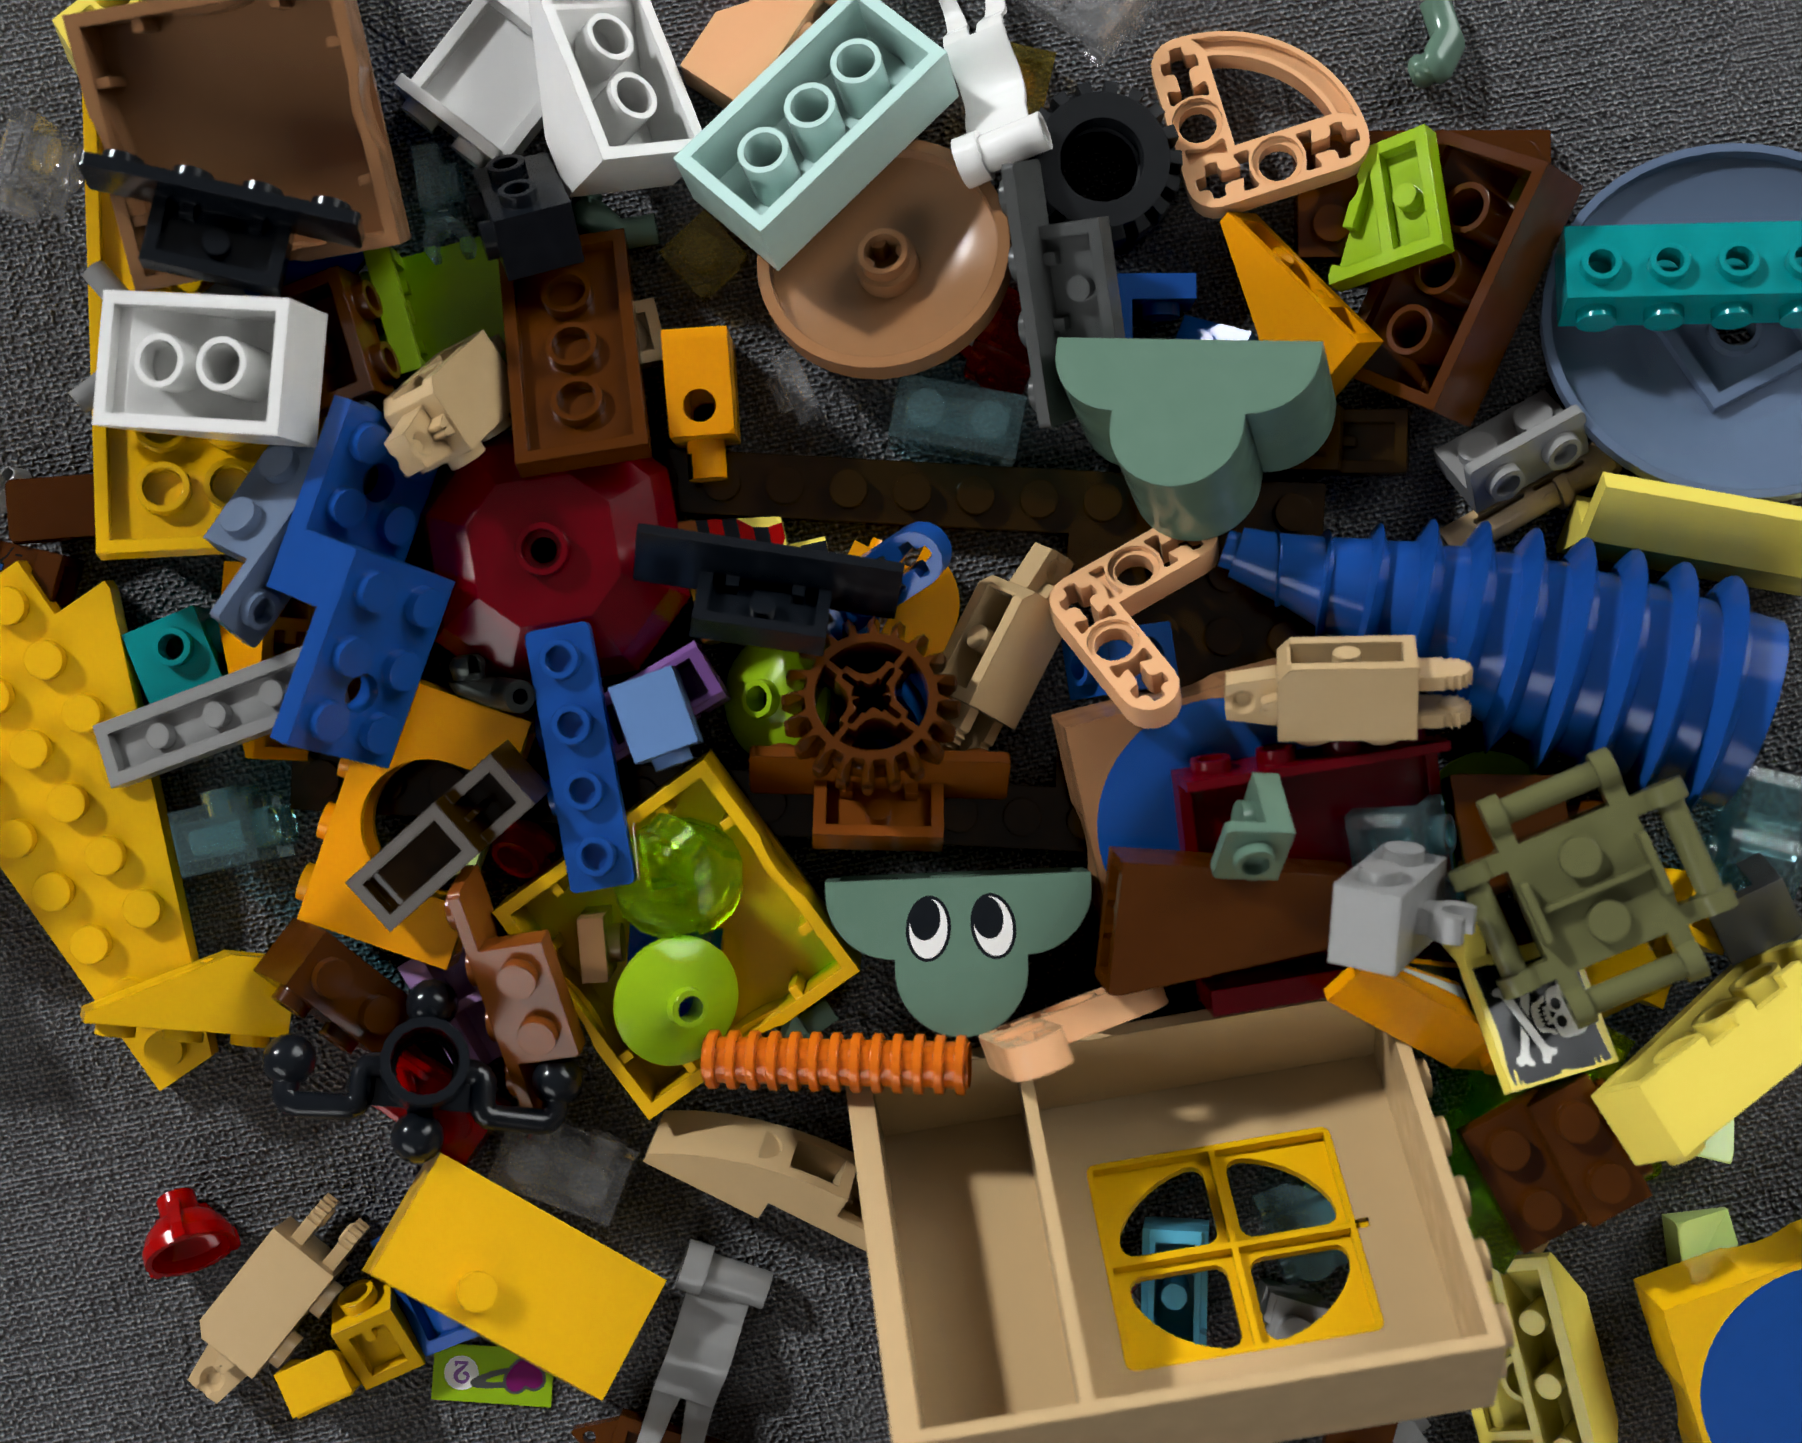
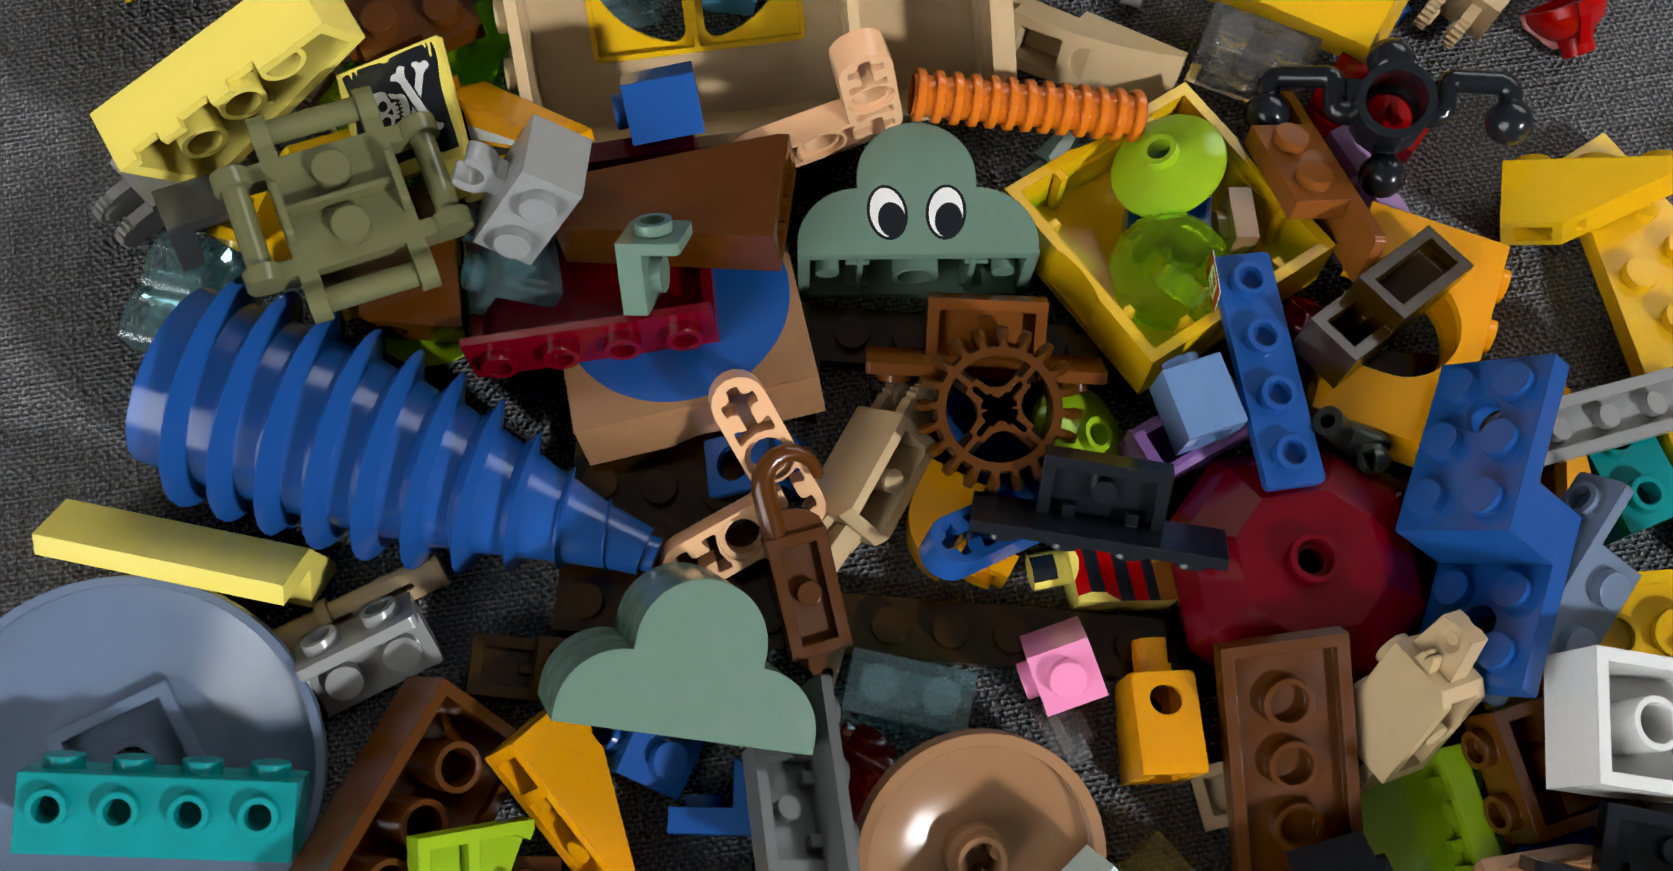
camera: 175 degrees right, 15 degrees down
(232, 831) = (1576, 323): clear light blue brick -> none
(334, 985) = (1469, 193): reddish brown brick -> none
(802, 445) = (1060, 667): none -> bright pink brick
(1073, 535) = (801, 567): none -> reddish brown plate
(1253, 1036) = (659, 104): none -> blue brick
(1349, 690) = (549, 389): tan hinge -> none

